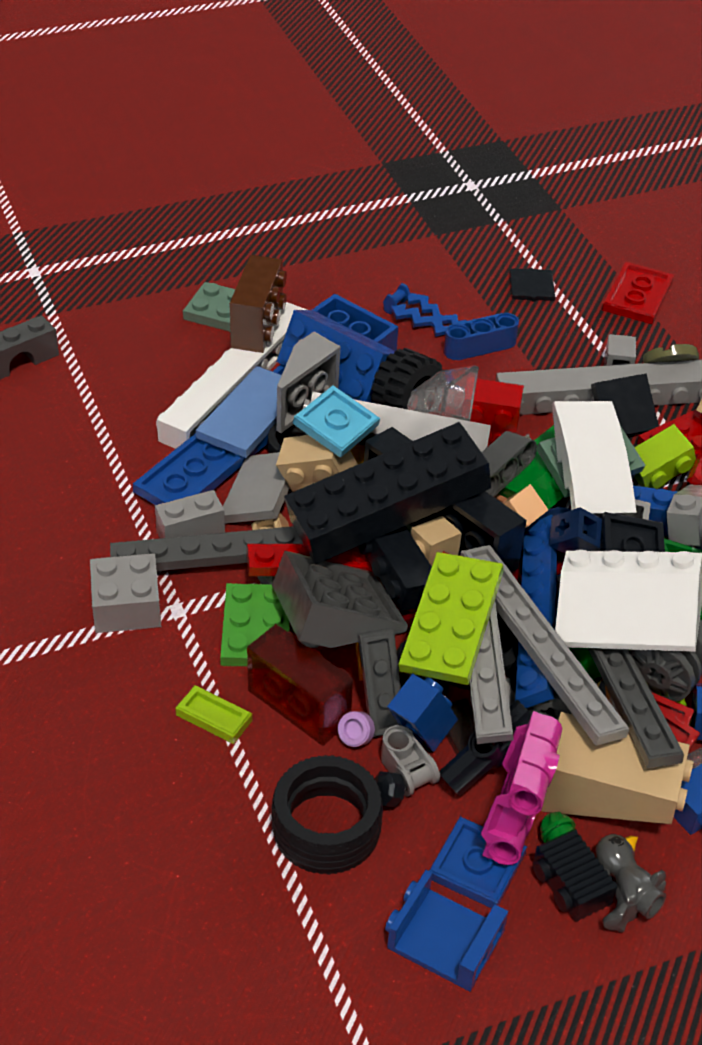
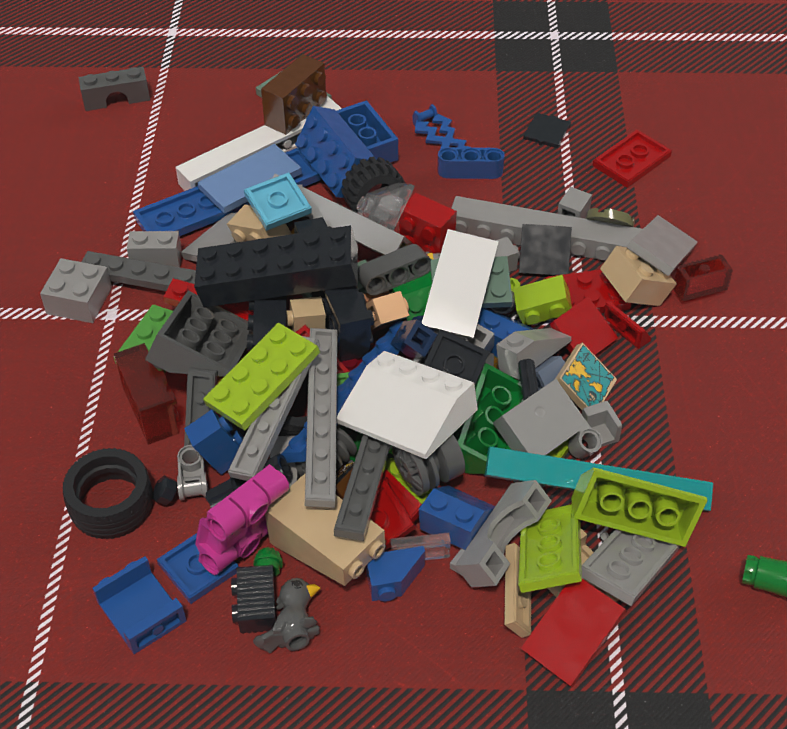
camera: 25 degrees right, 5 degrees up
(214, 714) = (86, 397): lime tile -> none
(310, 368) = (294, 153): light grey slope -> none
(356, 728) = (172, 439): lavender tile -> none

